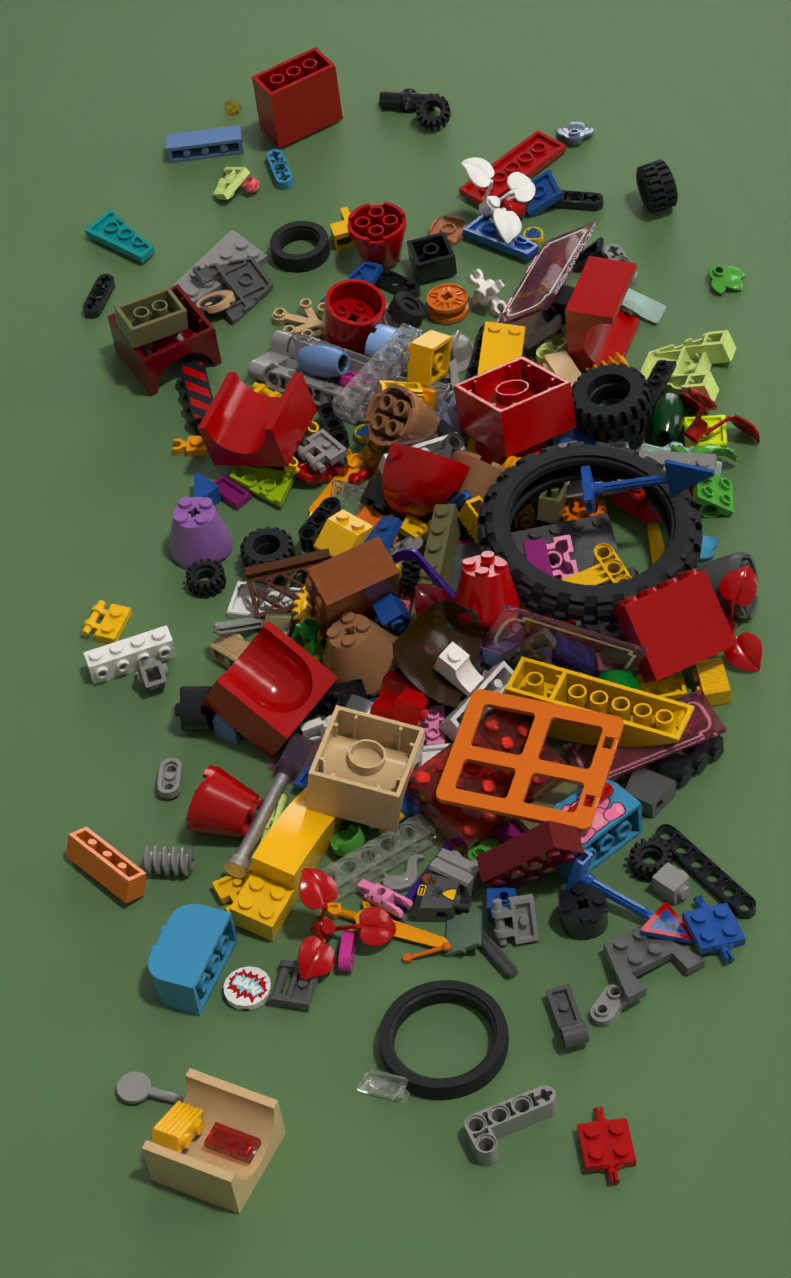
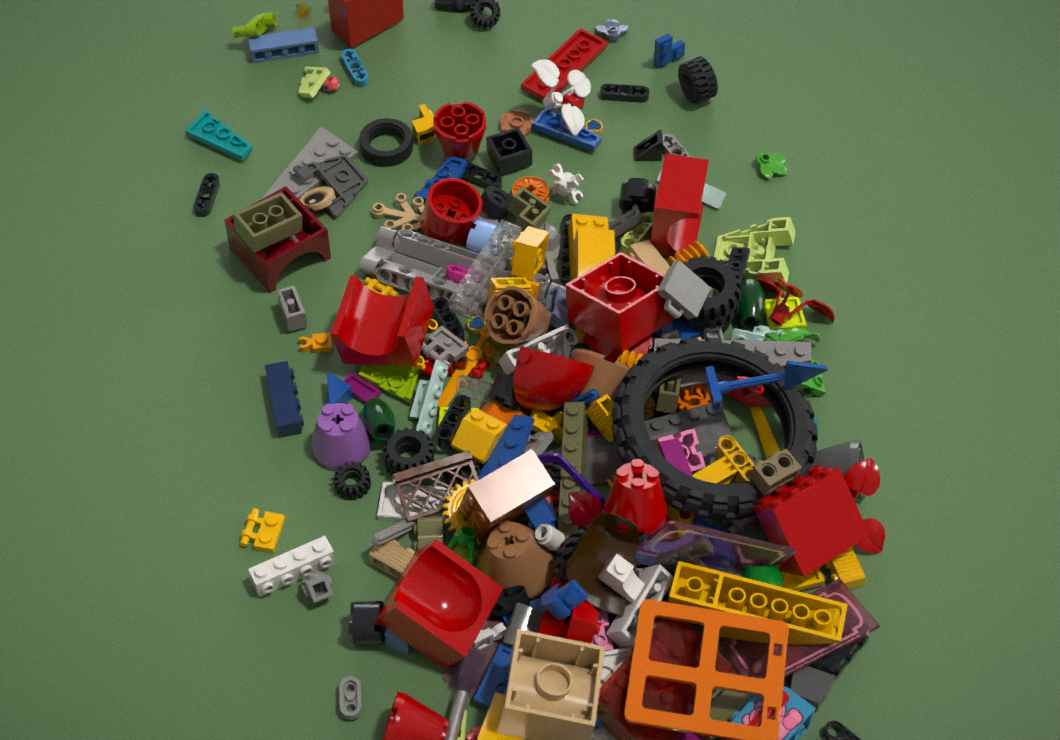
camera: 15 degrees left, 5 degrees up
(147, 499) = (283, 399): none -> dark blue brick
(169, 409) = (291, 308): none -> light grey brick
(178, 122) = (256, 26): none -> lime beam
(196, 390) = (316, 292): black hinge -> none
(241, 518) = (378, 419): none -> dark green piece
(298, 499) = (427, 398): none -> light aqua bracket
(323, 360) = (430, 257): medium blue piece -> none
(391, 628) = (549, 537): none -> white brick
(393, 684) = (561, 600): none -> blue brick
(439, 315) = (528, 209): none -> olive brick
(546, 193) = (600, 87): blue tile -> none
(546, 274) = (616, 167): clear pink piece -> none
(578, 394) = (683, 291): none -> light grey piece
(628, 157) = (666, 51): none -> blue plate
(639, 573) = (777, 474): none -> dark tan brick

